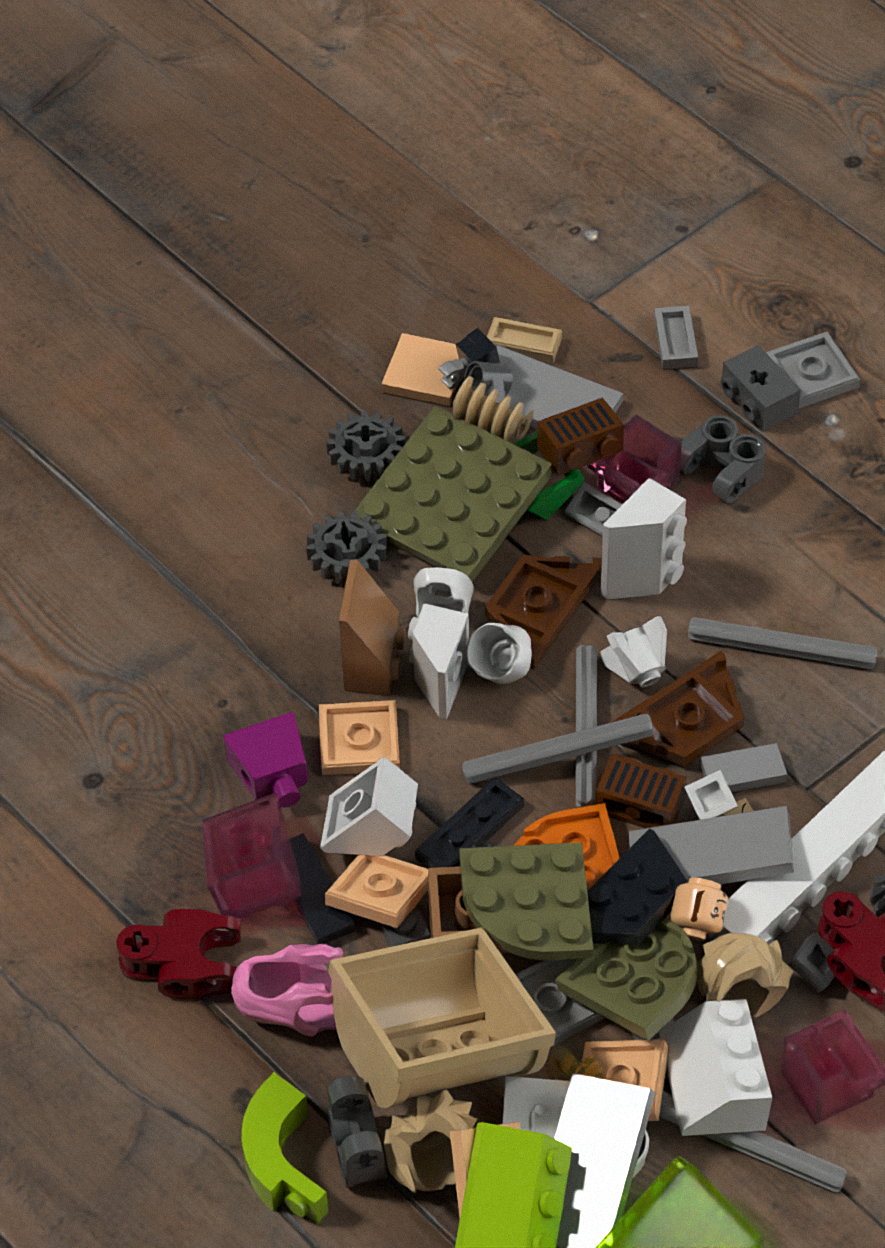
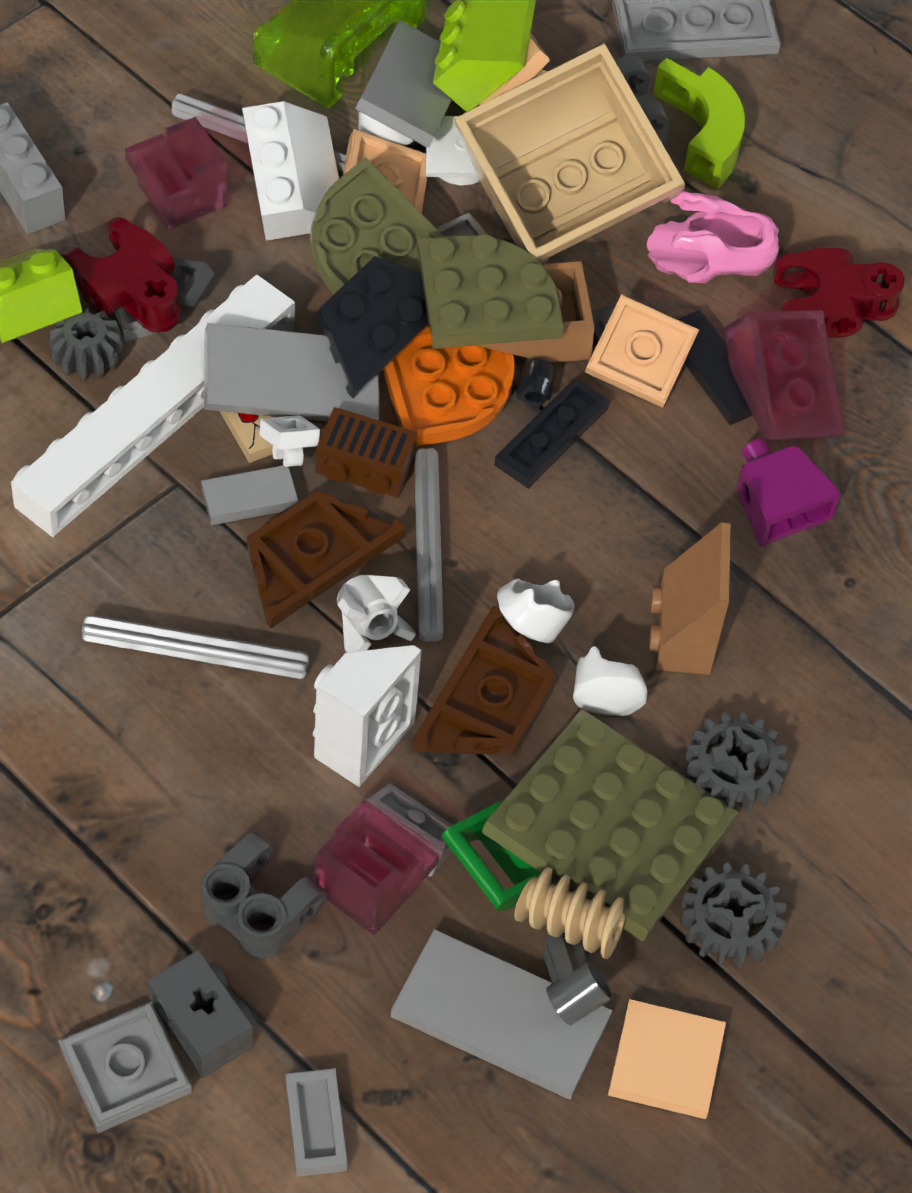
camera: 170 degrees right, 5 degrees up
(357, 736) = (677, 522): light nougat tile -> none
(371, 812) = (663, 419): white slope -> none
(439, 654) = (608, 590): white slope -> none
(470, 349) = (601, 1037): black piece -> none
(526, 338) = (534, 1116): tan tile -> none
(558, 748) = (459, 494): light grey axle -> none
(569, 1064) = (432, 180): clear yellow arm -> none
(580, 436) = (450, 855): reddish brown brick -> none
(699, 908) = (306, 288): light nougat head -> none
(743, 968) = (263, 244): tan hair -> none

